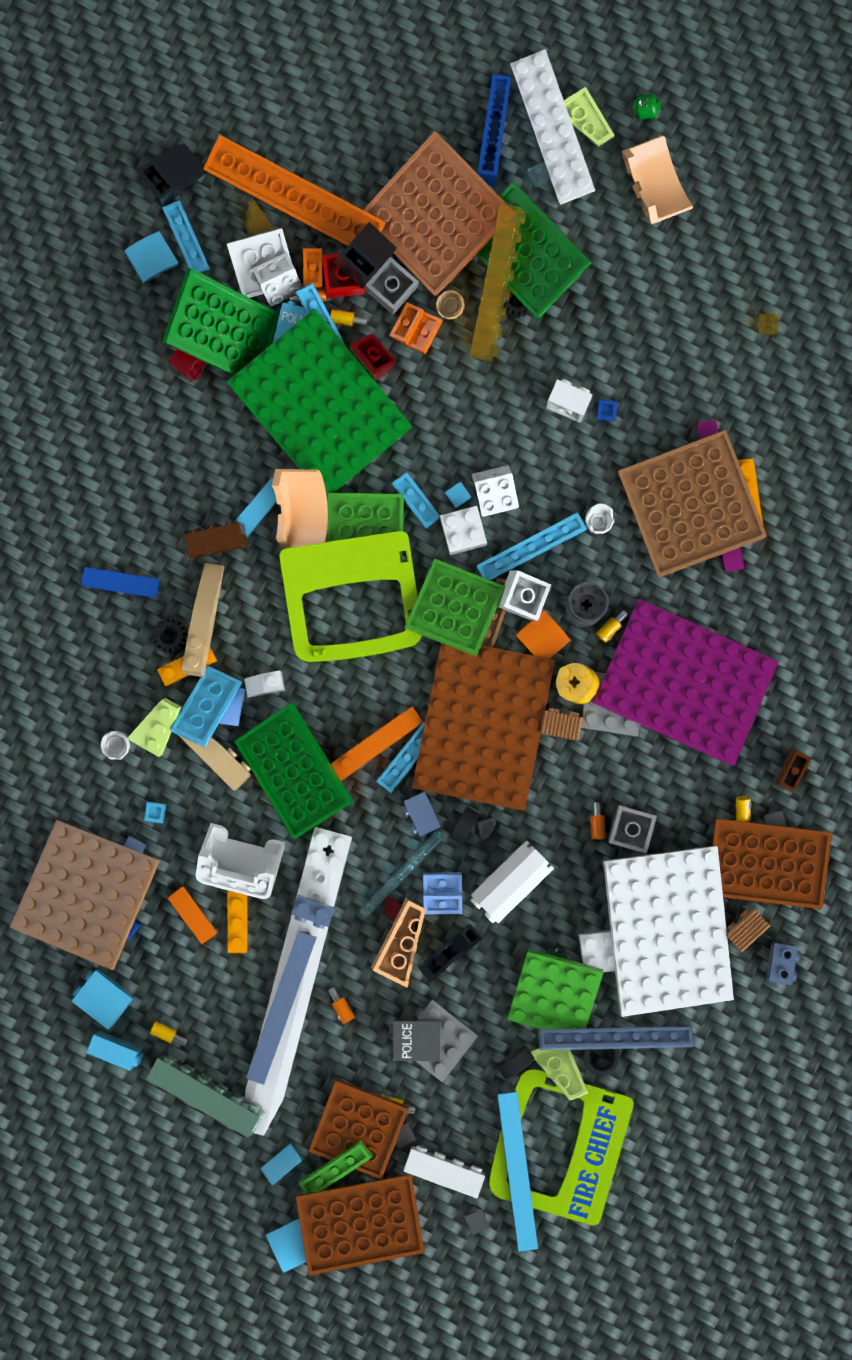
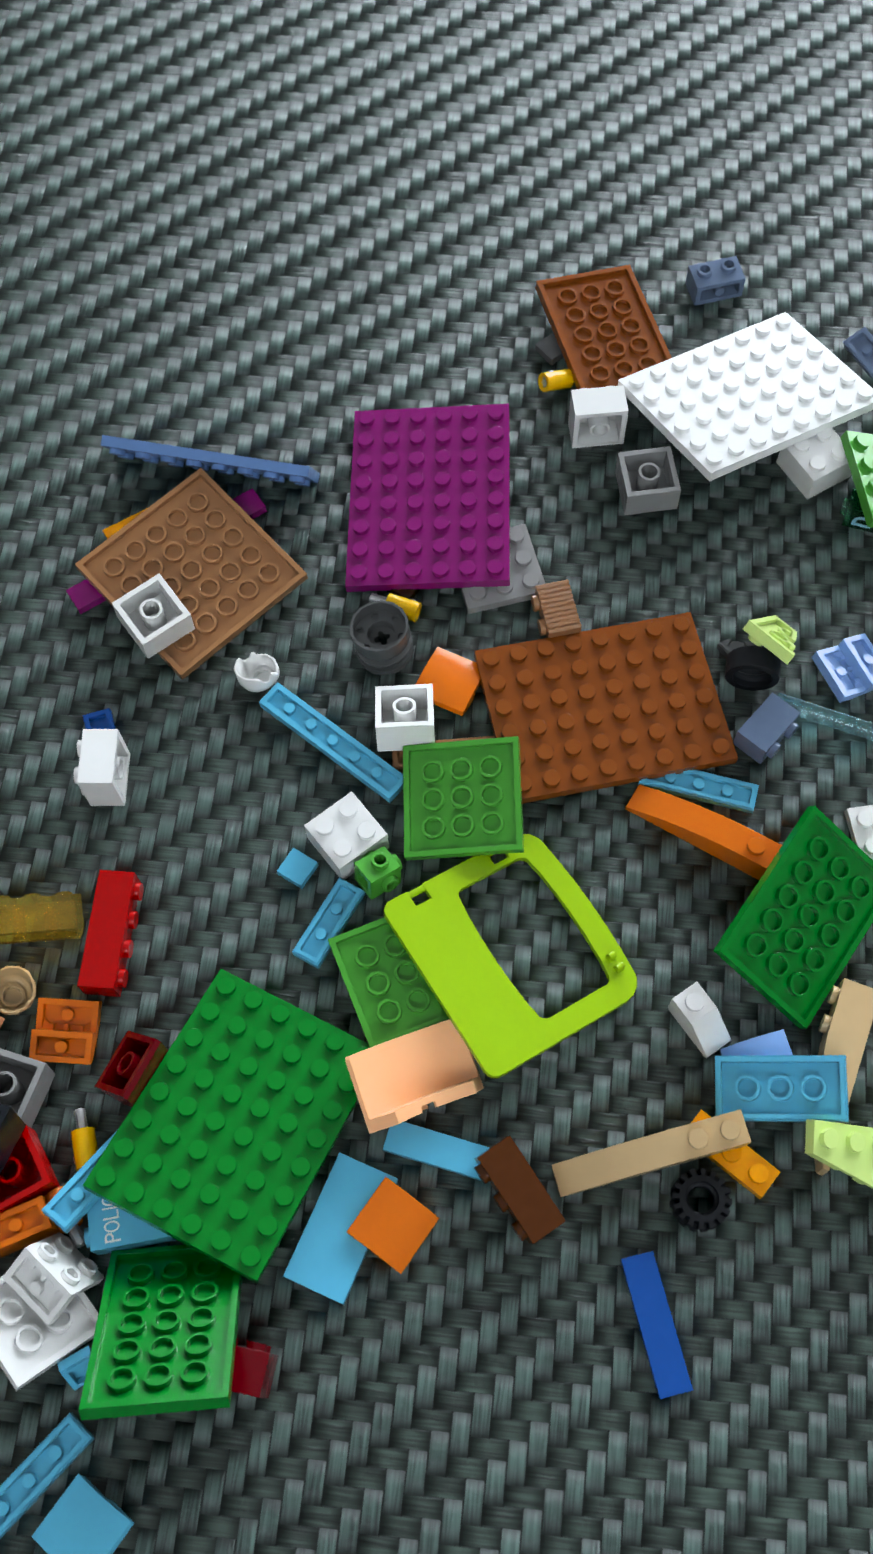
camera: 115 degrees left, 20 degrees down
(227, 278) = (75, 1367): none -> medium azure tile
(229, 467) = (393, 1225): none -> orange slope
(240, 439) = (326, 1254): none -> medium azure tile
(425, 536) = (378, 872): none -> bright green brick
(462, 371) = (110, 933): none -> red brick
(477, 847) = (773, 635): none -> yellowish green wing
(495, 490) = (267, 818): white bracket -> none
(511, 882) = (807, 586): white brick -> none
(579, 693) = (499, 593): yellow brick -> none
(597, 823) = (660, 525): orange piece -> none
(659, 465) = (153, 615): none -> white brick
(696, 819) = (597, 416): none -> white brick
(746, 929) = (695, 325): medium nougat brick -> none
(774, 547) = (203, 459): none -> medium blue plate
(793, 771) = (483, 344): reddish brown brick -> none

